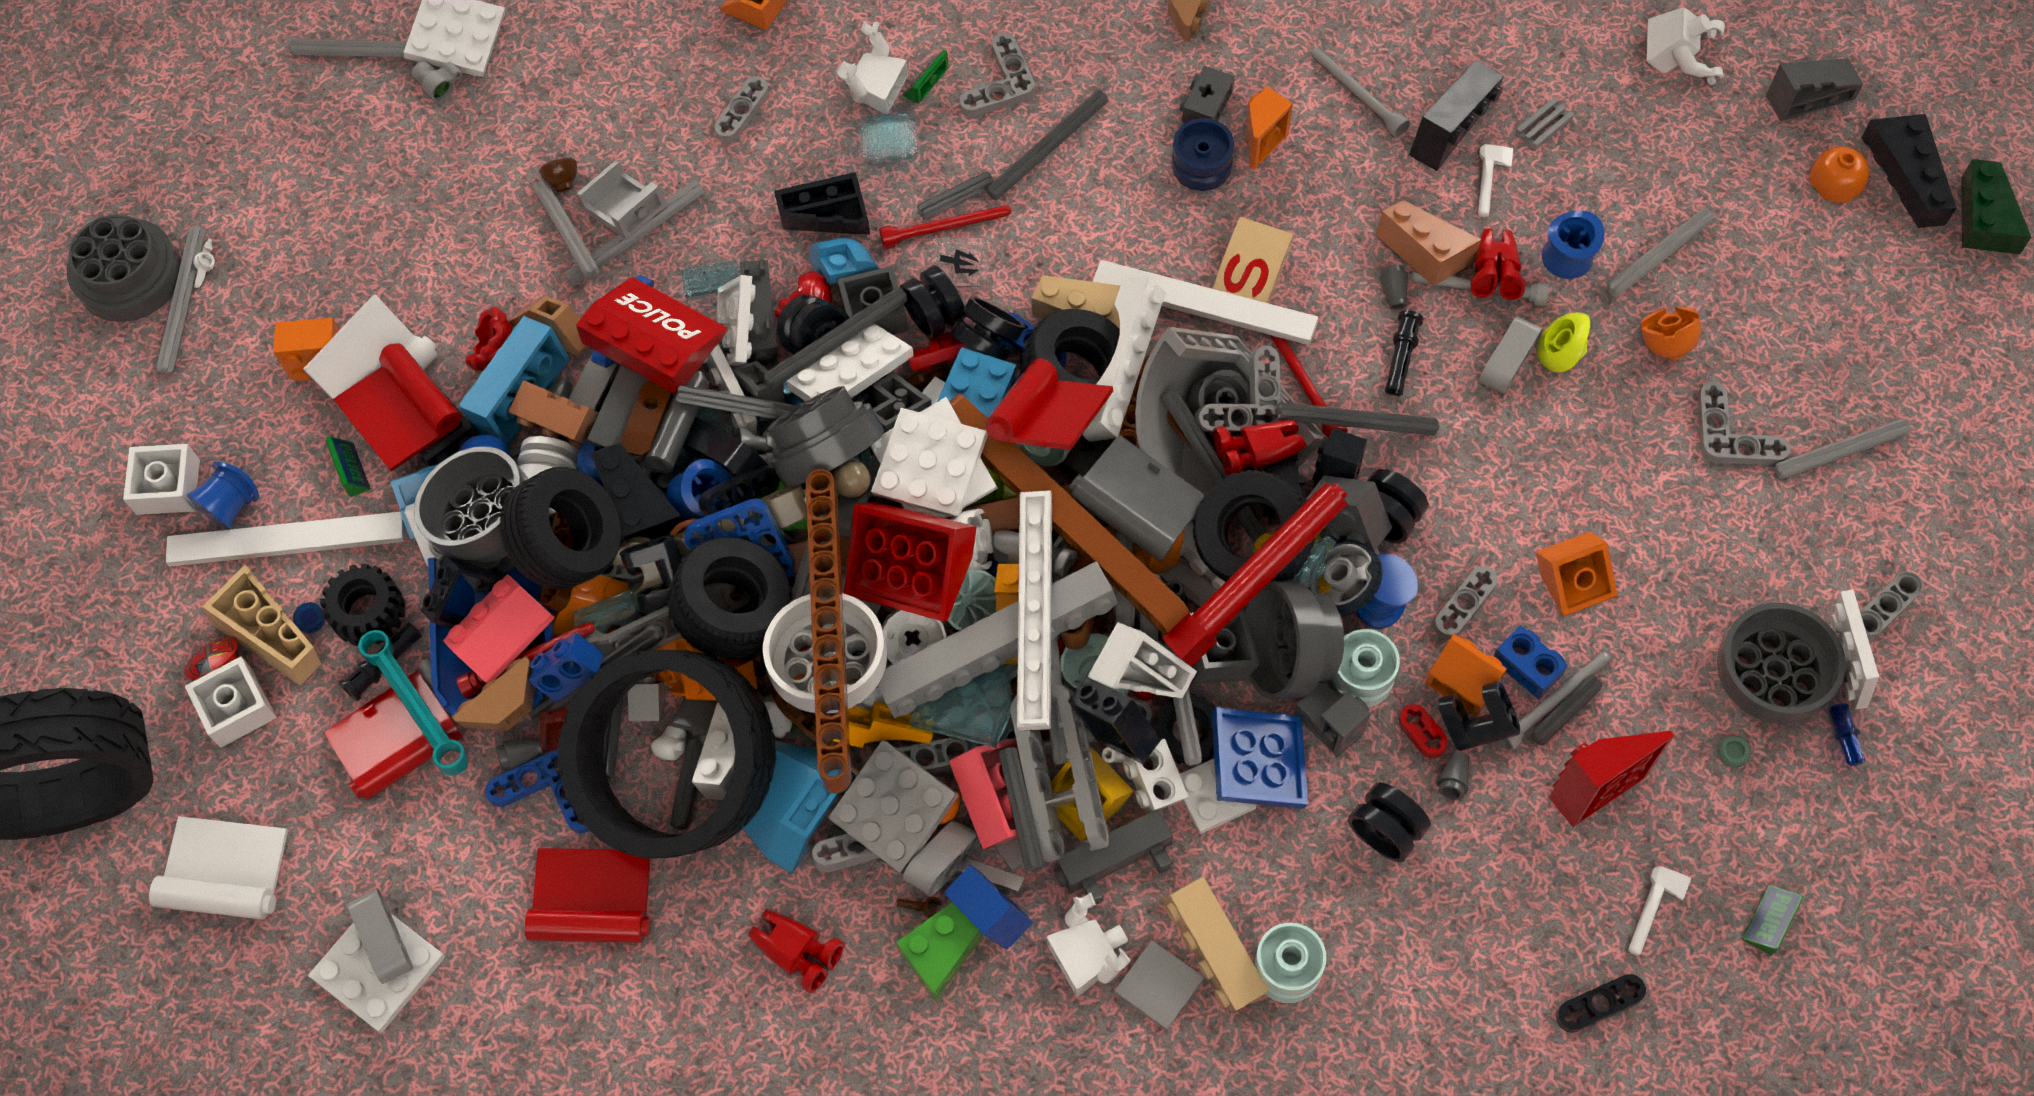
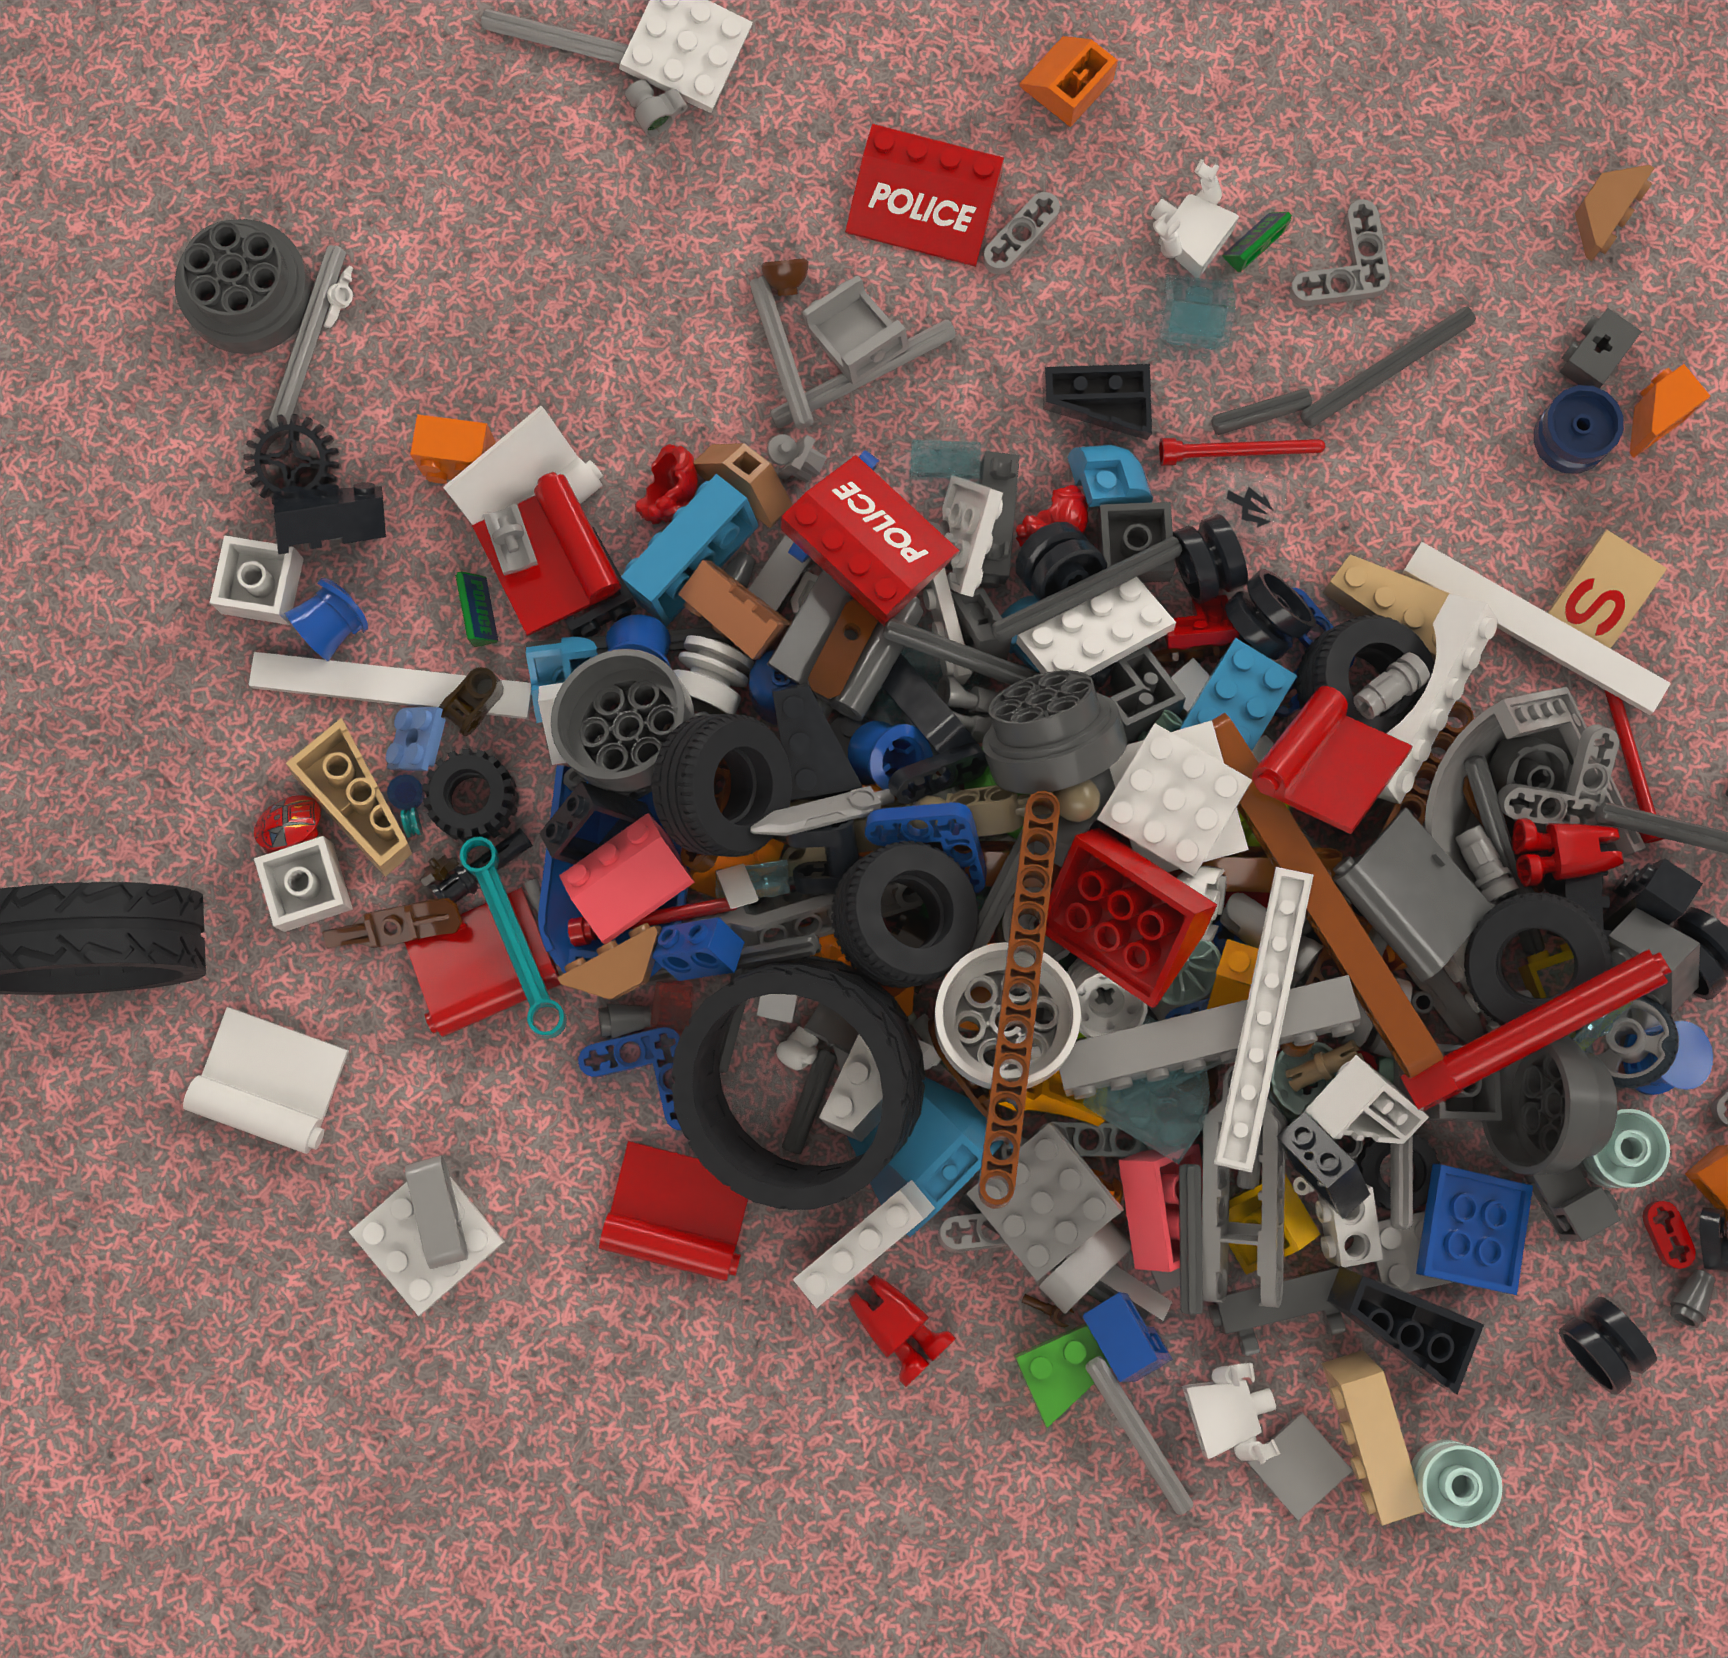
camera: 10 degrees right, 15 degrees up
(155, 384) = (292, 445): none -> black gear
(214, 415) = (328, 514): none -> black wedge
(311, 571) = (415, 739): none -> medium blue piece
(316, 638) = (411, 822): none -> teal piece
(327, 712) = (412, 920): none -> reddish brown piece
(344, 668) = (438, 869): none -> dark brown piece
(350, 534) = (471, 703): none -> dark brown piece
(365, 399) = (510, 540): none -> light grey hips
(580, 296) = (797, 457): none -> light grey hips
(591, 613) = (737, 886): none -> white sticker
(660, 96) = (924, 195): none -> red slope
(673, 526) = (823, 812): none -> light grey piece
(762, 855) = (864, 1244): none -> white arch
(1014, 984) = (1139, 1435): none -> light grey axle
(1087, 353) = (1387, 689): none -> light grey axle
(1087, 660) = (1322, 1066): none -> tan pin
(1195, 468) = (1486, 864): none -> light grey axle
(1221, 841) = (1418, 1331): none -> black wedge

